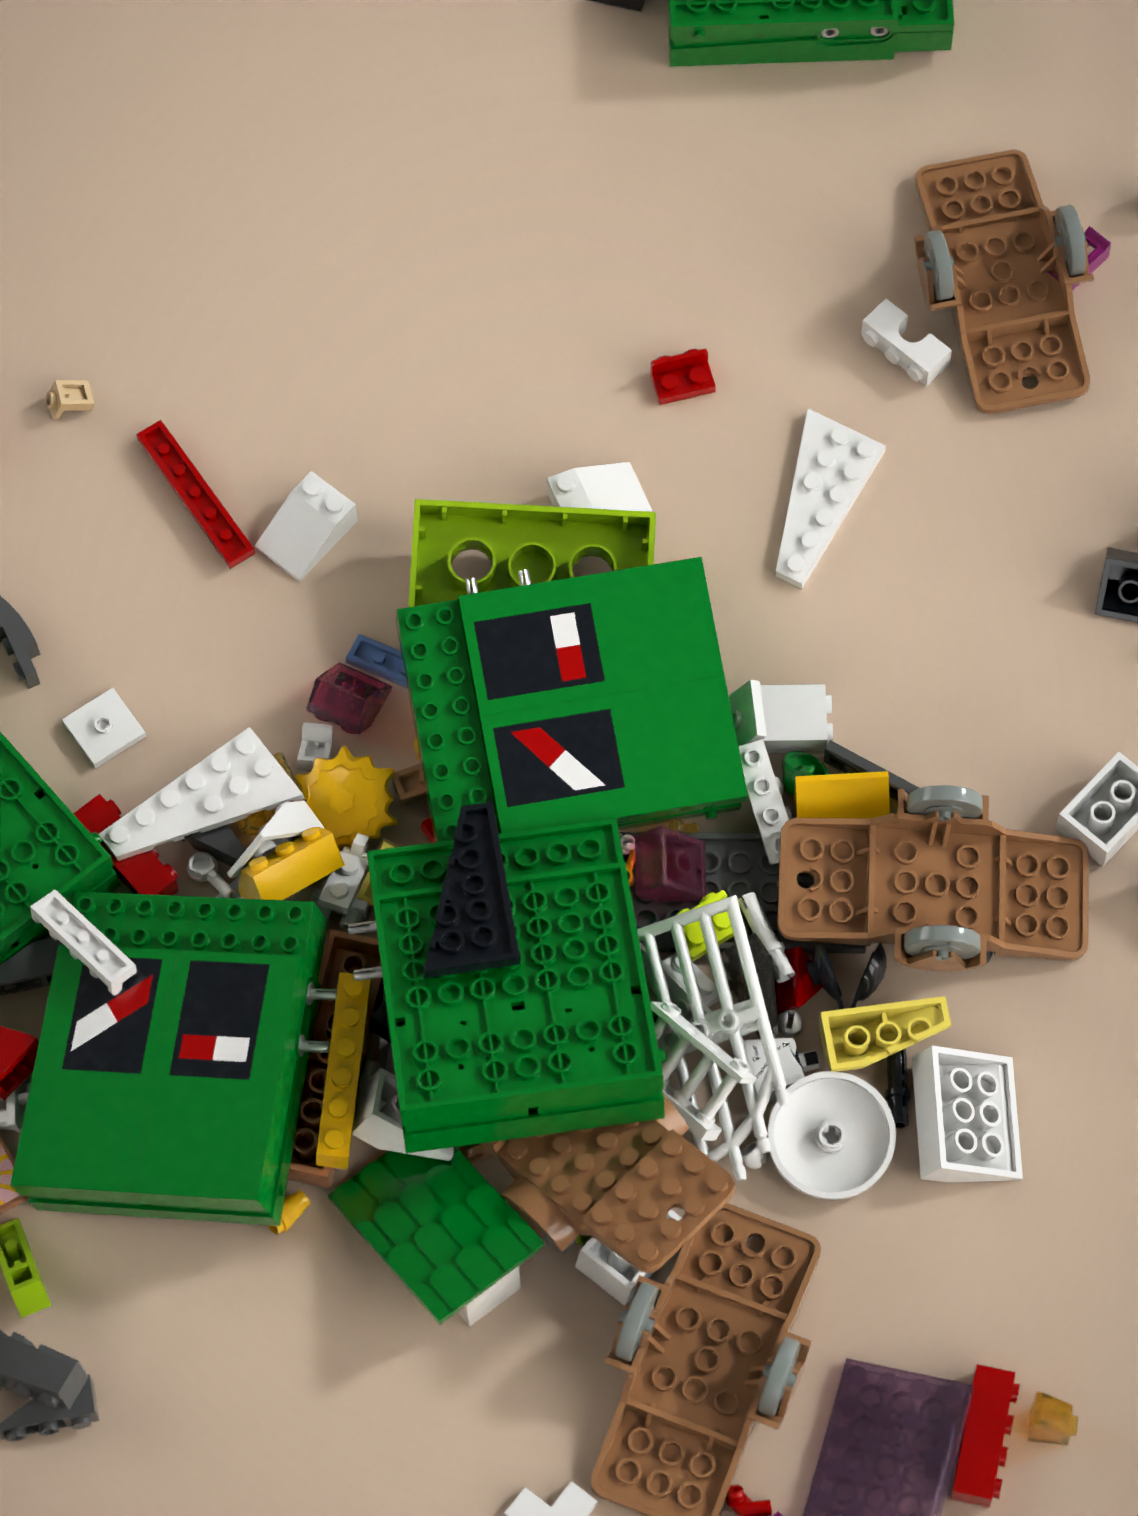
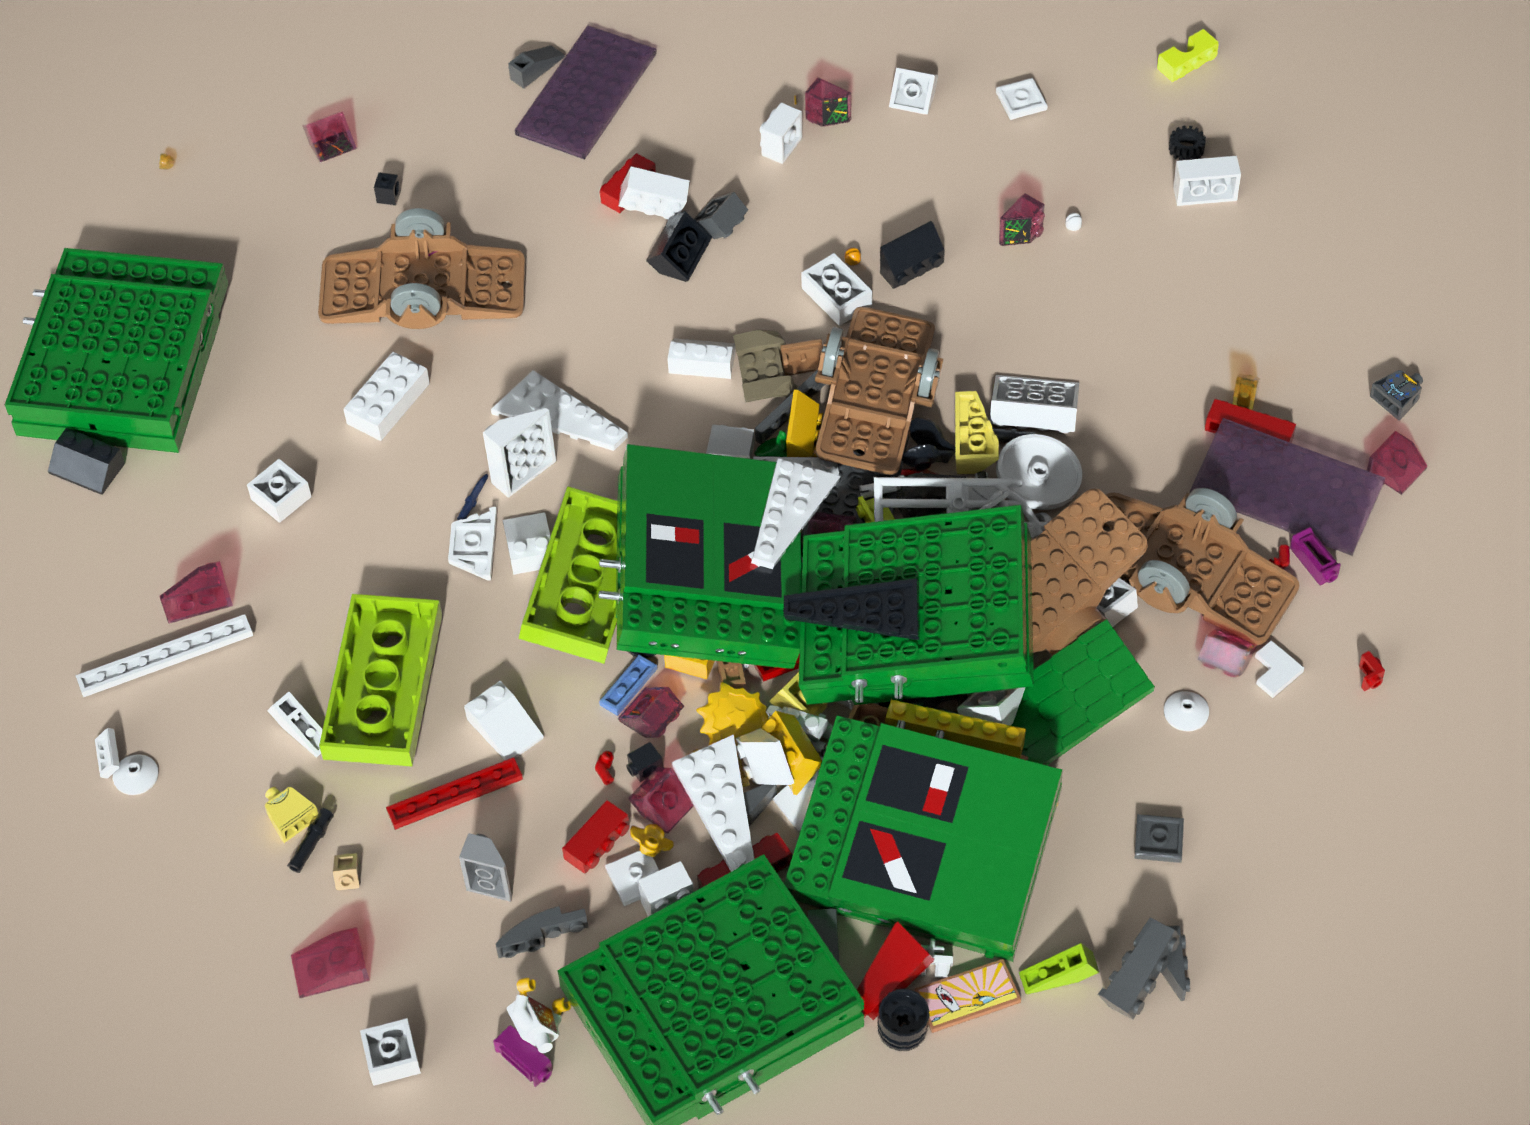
camera: 80 degrees left, 10 degrees down
(68, 762) = (664, 888): none -> white brick
(71, 543) = (484, 868): none -> light grey slope
(83, 940) = (833, 871): white hinge -> none
(118, 352) = (314, 833): none -> black pin
(141, 315) = (289, 812): none -> light yellow torso
(150, 668) = (596, 837): none -> red brick
(160, 733) = (651, 839): none -> yellow plate
(183, 151) = (138, 781): none -> white dish
(199, 103) = (107, 753): none -> white plate
(204, 868) = (767, 820): white plate -> none
(211, 726) = (662, 799): none -> clear pink slope
(242, 1376) = (1159, 838): none -> dark grey plate
(259, 658) = (603, 766): none -> red arm
(269, 297) = (297, 722): none -> white slope
(270, 704) = (643, 761): none -> black brick
(316, 742) = (686, 737): white bracket -> none
(337, 369) = (381, 680): none -> lime plate
(351, 128) = (164, 655): none -> white plate
(440, 137) = (197, 594): none -> clear pink slope
(468, 1410) = (1184, 718): none -> white dish
(565, 1438) = (1226, 653): none -> clear pink slope
(582, 434) = (473, 543): none -> white wing
(616, 188) = (279, 490): none -> white brick
(652, 417) = (470, 501): none -> dark blue piece
(673, 794) = (791, 503): none -> white wing
(682, 376) = (444, 478): red bracket -> none
(709, 443) = (519, 449): none -> white slope
(799, 277) = (386, 396): none -> white brick
(920, 359) = (445, 355): white arch -> none
(952, 736) = (762, 365): none -> dark tan piece
(957, 653) = (701, 358): none -> white slope
(980, 775) = (801, 357): none -> medium nougat hinge

